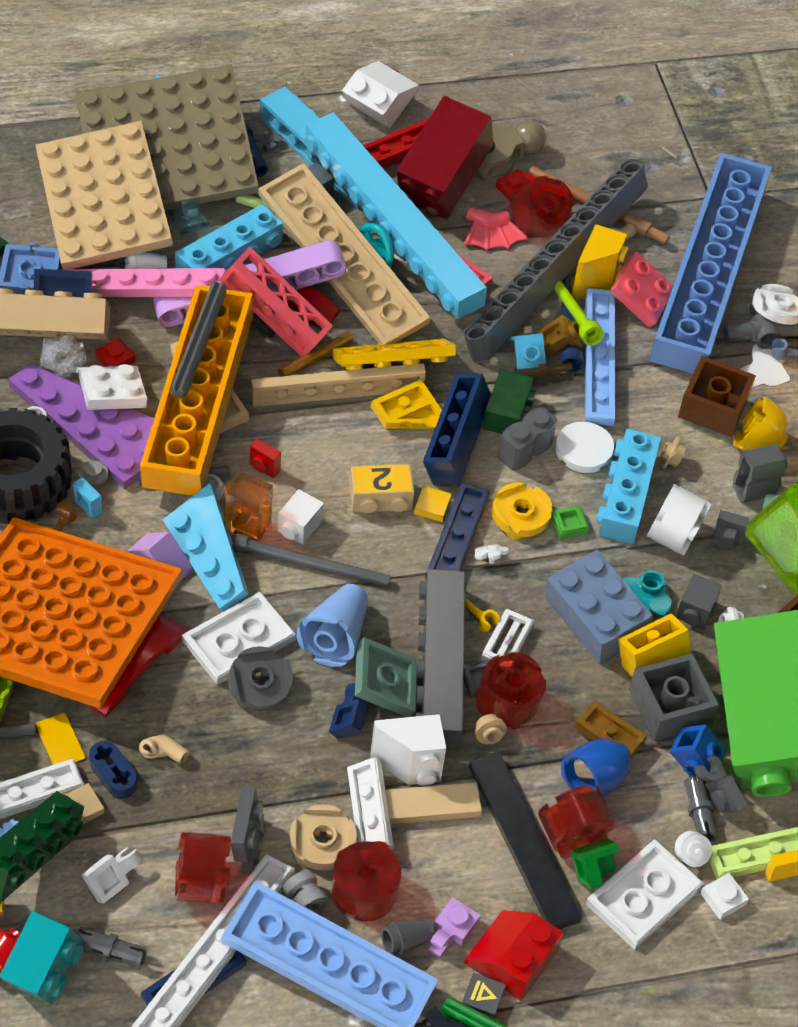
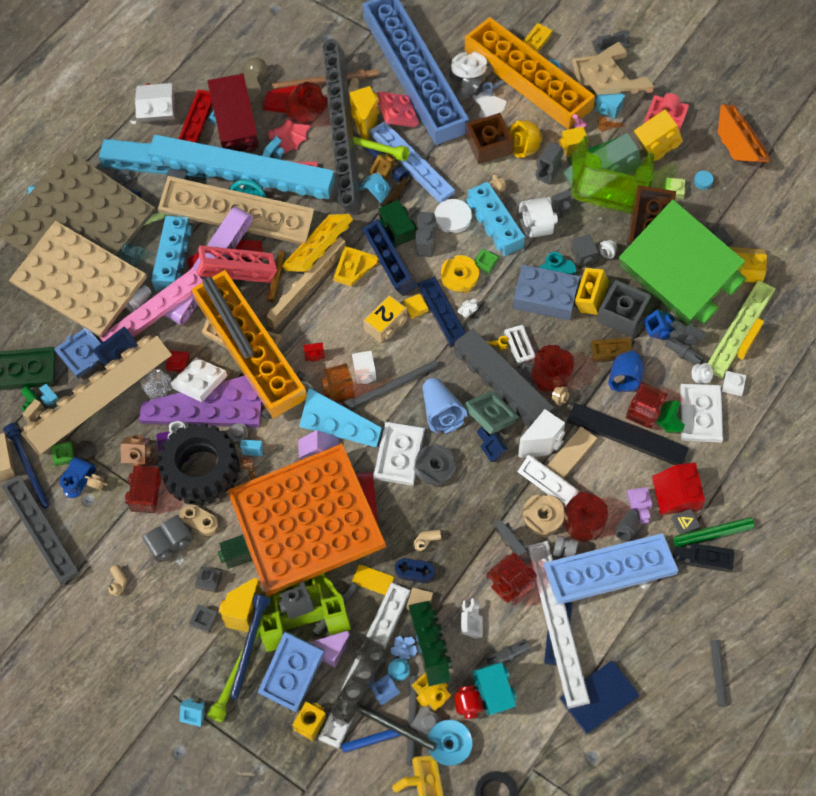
camera: 35 degrees left, 10 degrees up
(457, 228) = (273, 149): none -> medium azure tile

